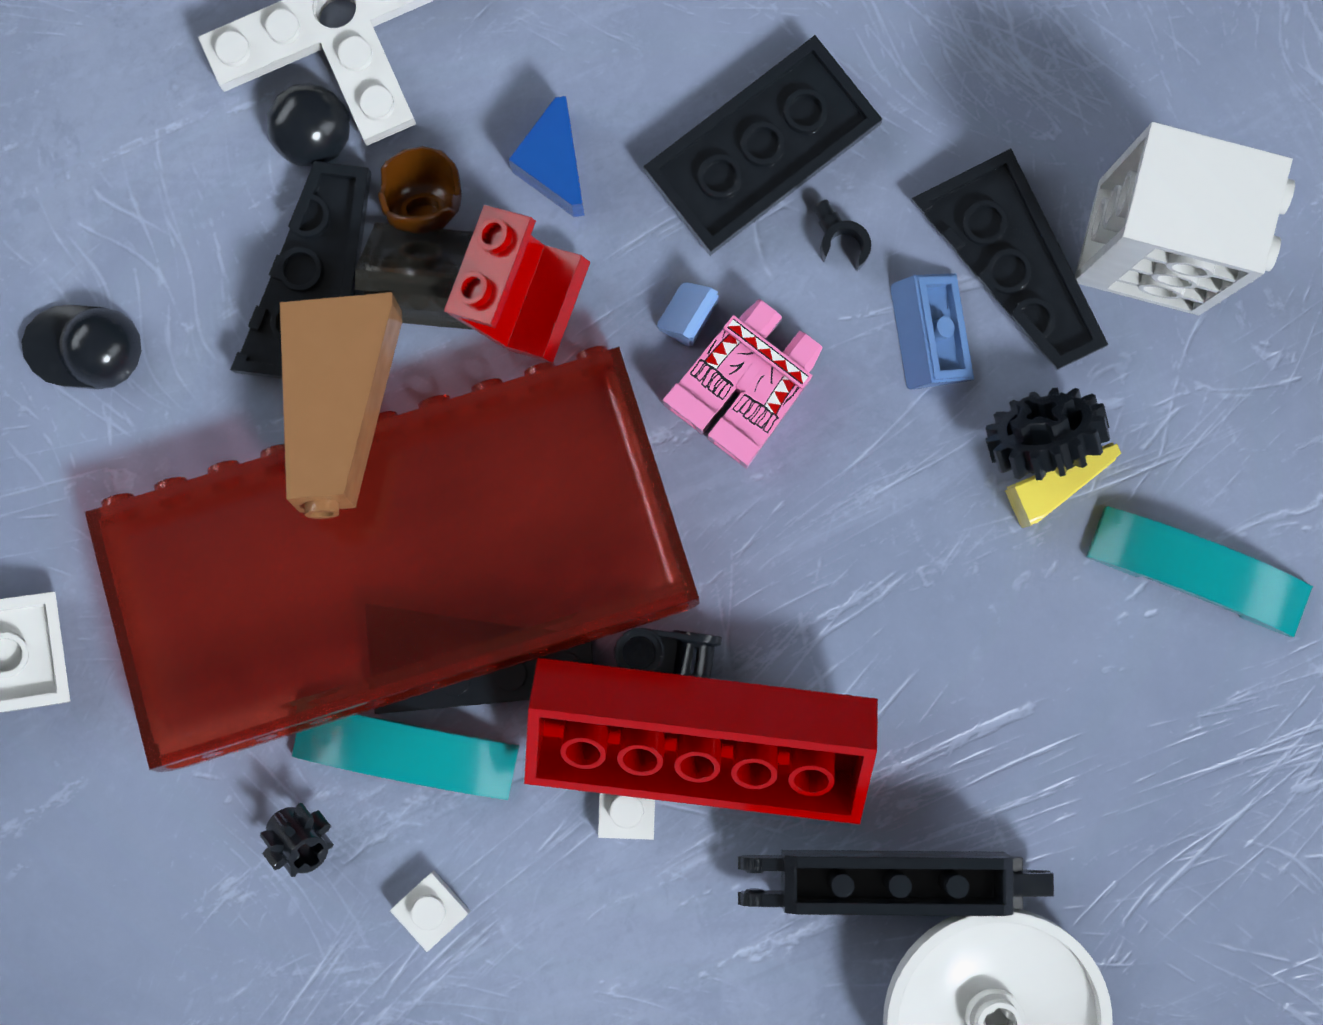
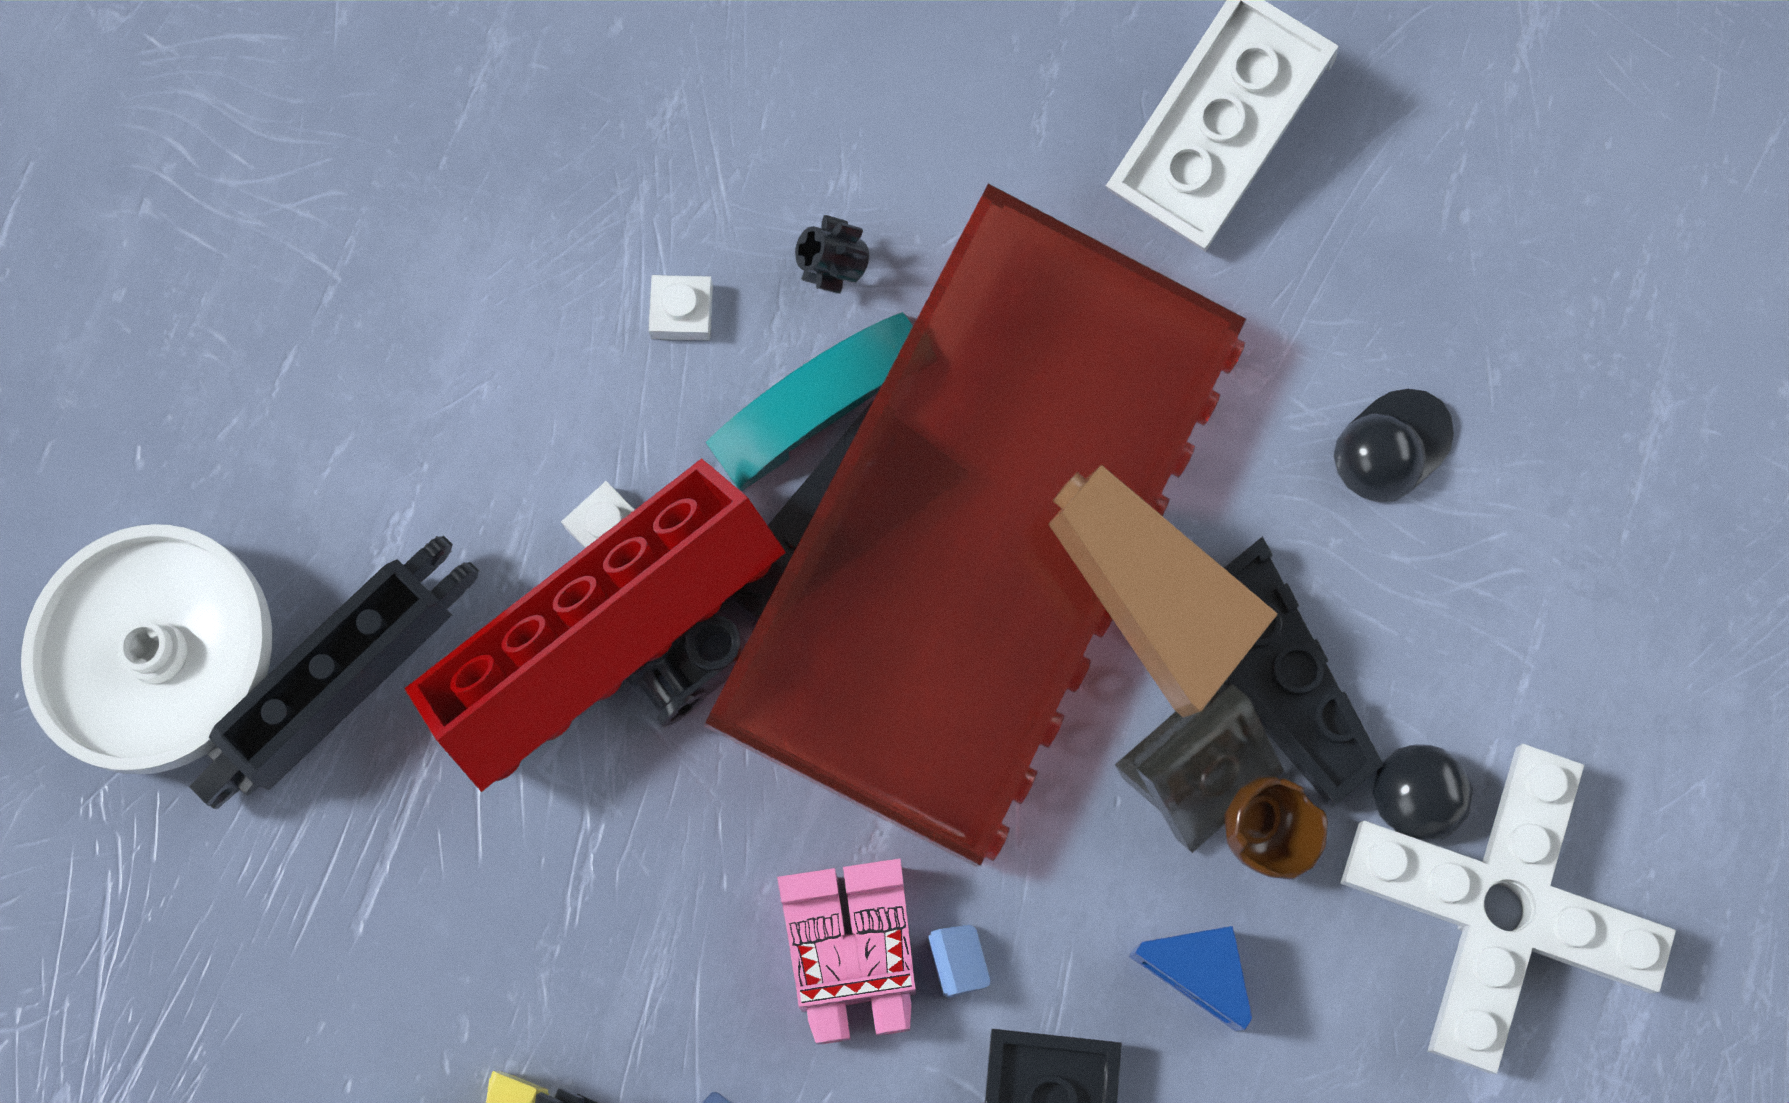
camera: 135 degrees right, 10 degrees down
(516, 285) = (1112, 826): red panel -> none

